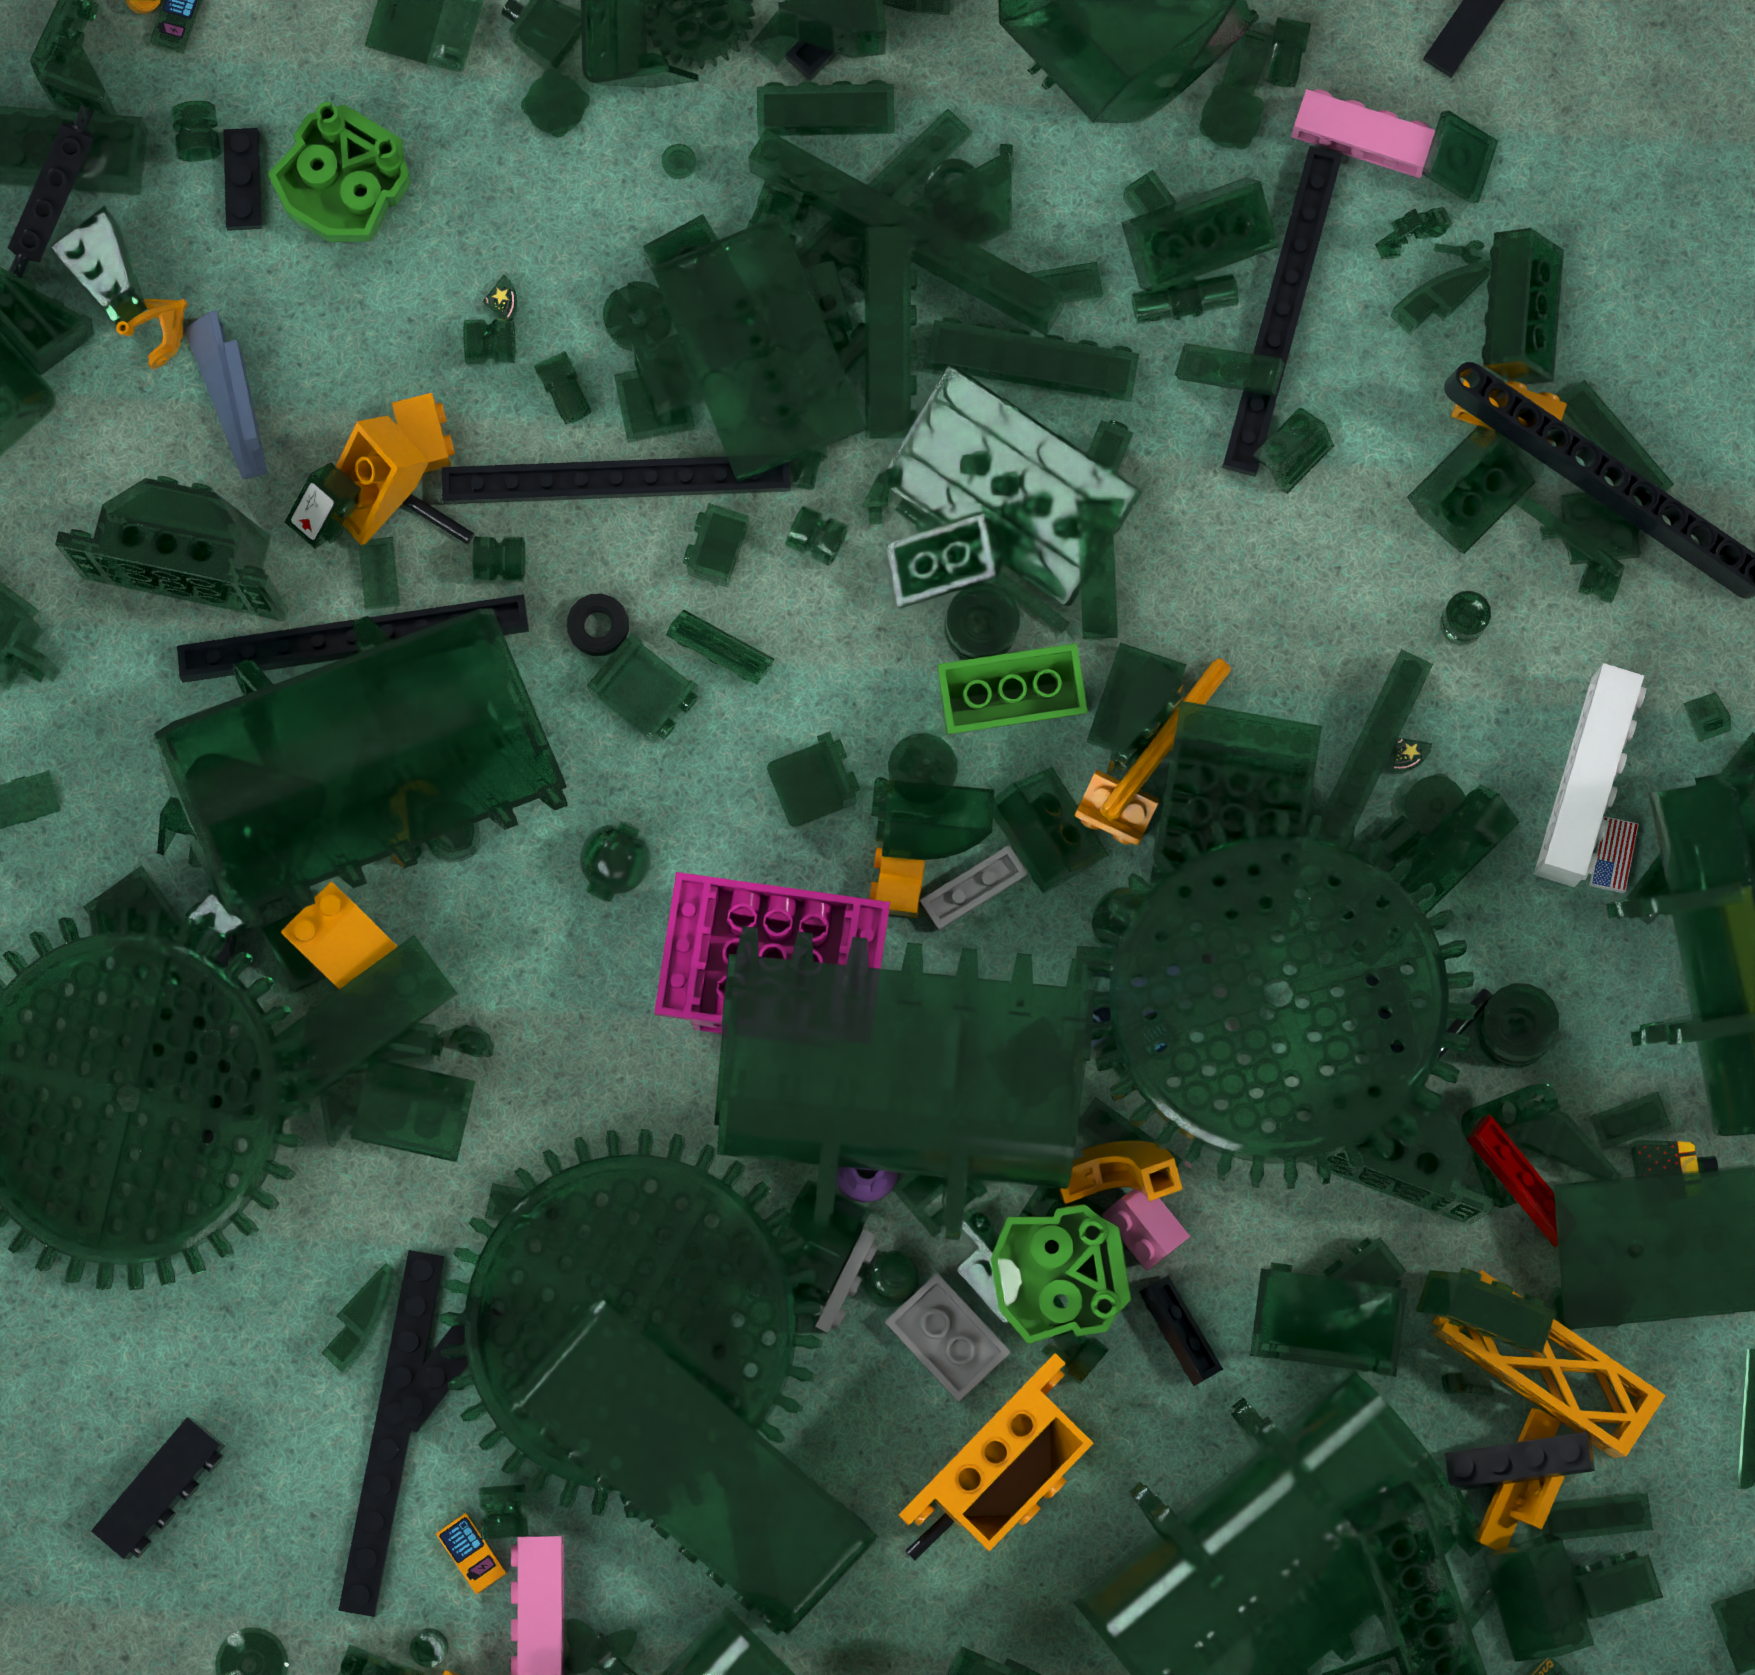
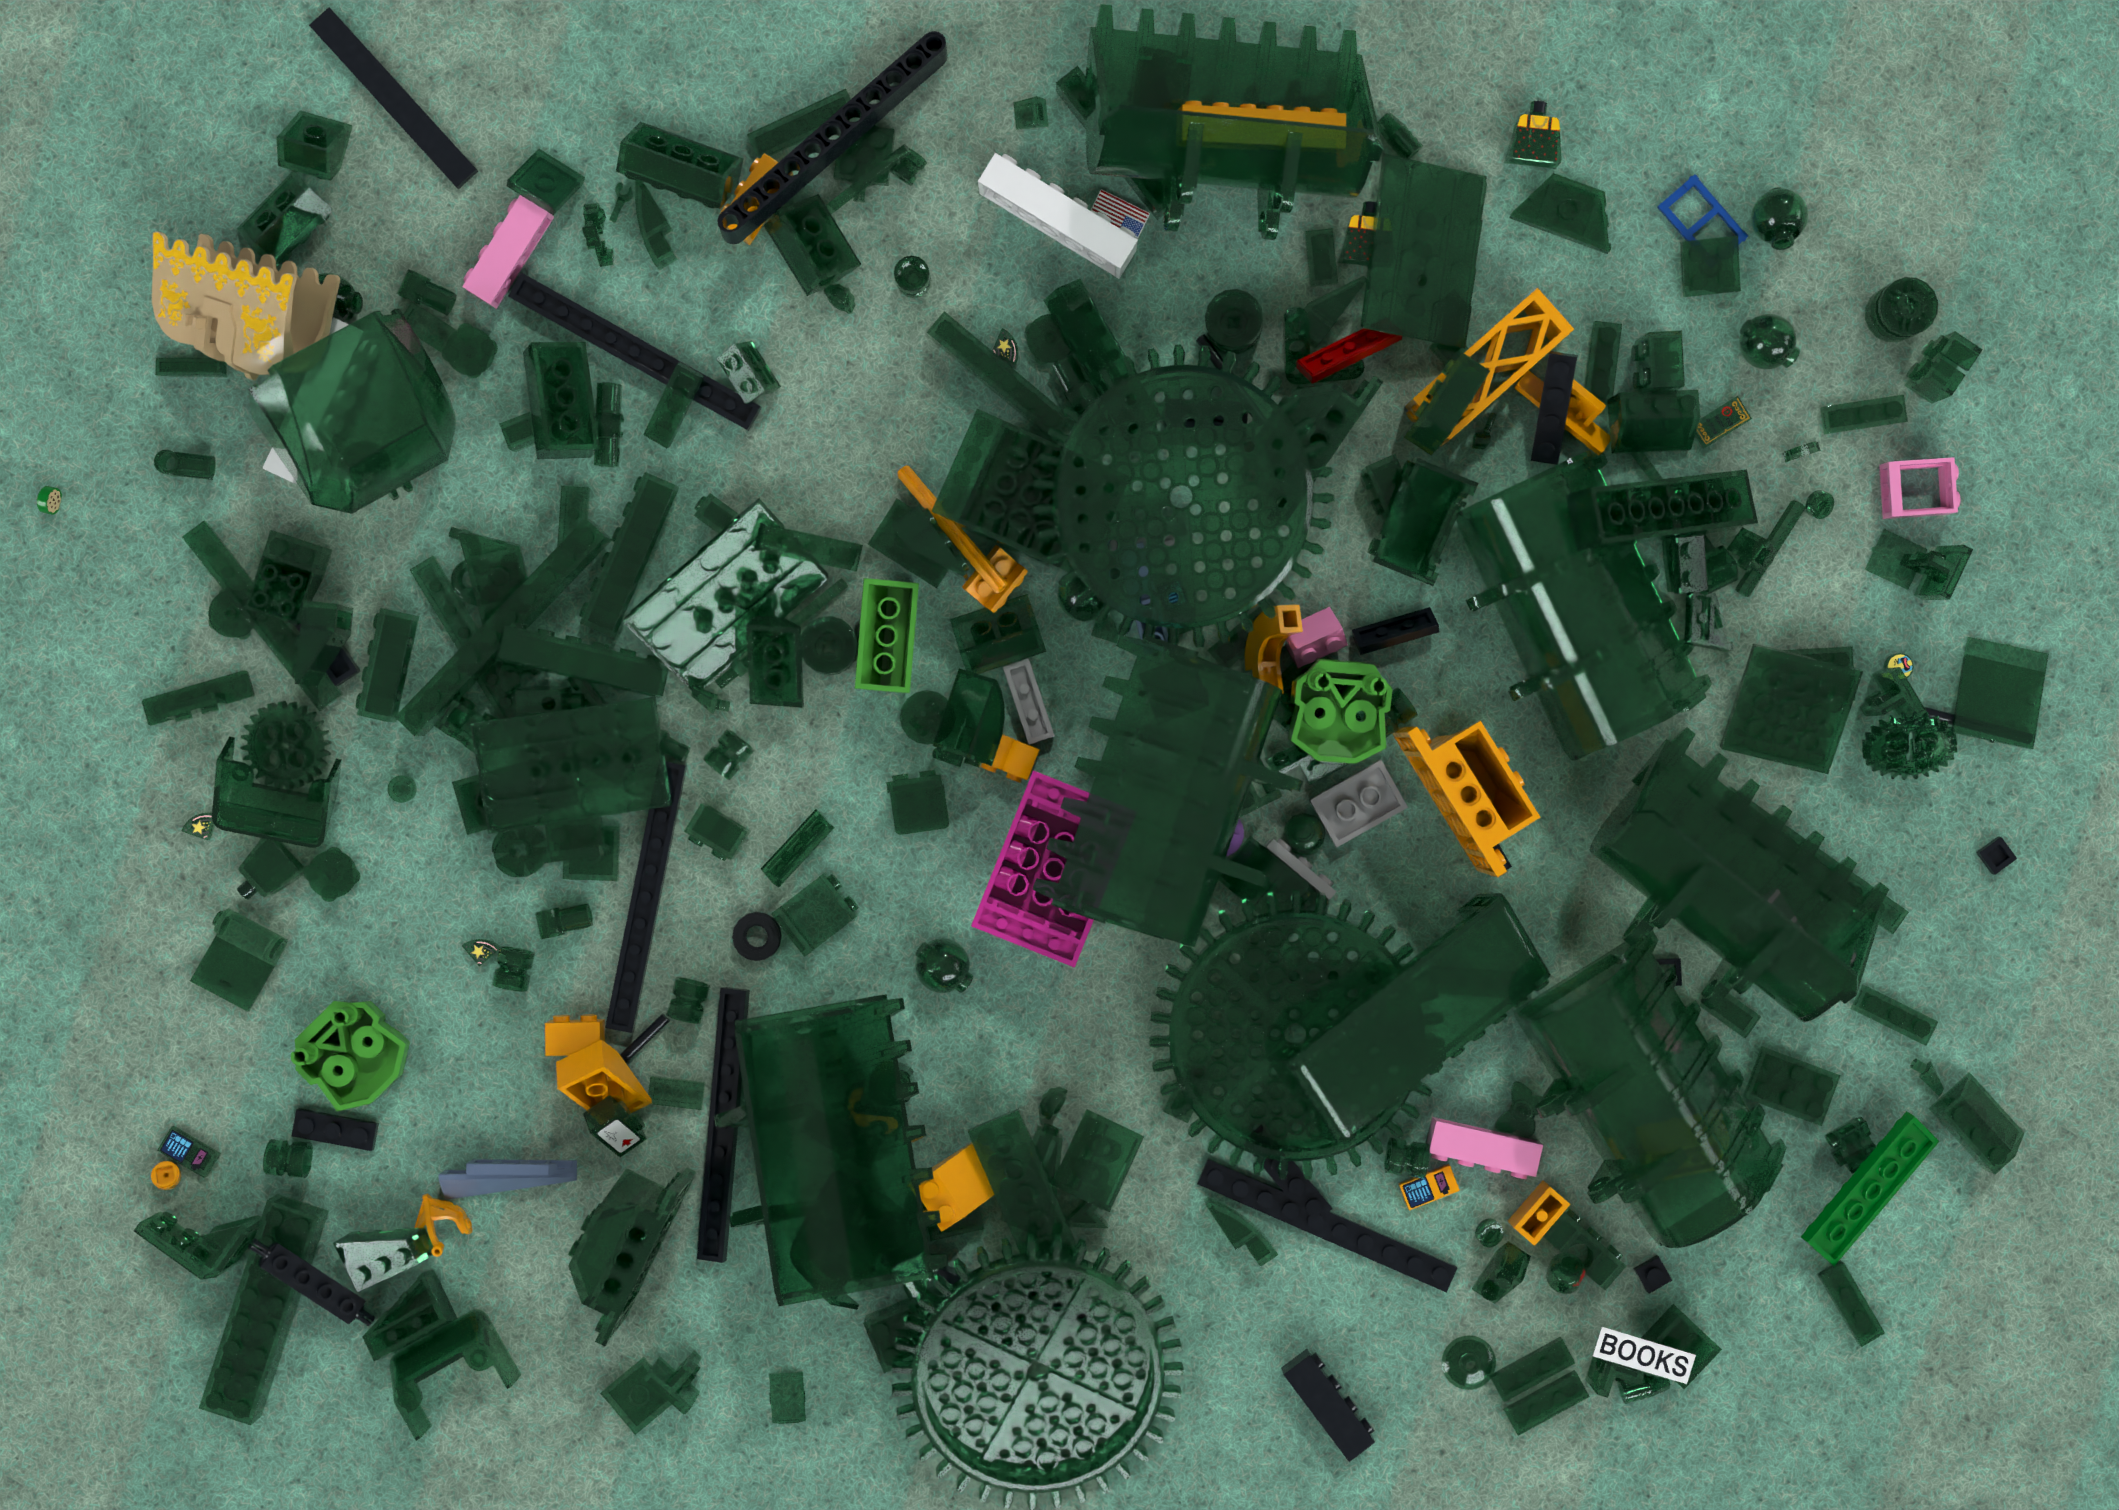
camera: 75 degrees left, 10 degrees up
(1421, 539) = (842, 294): none -> clear green piece

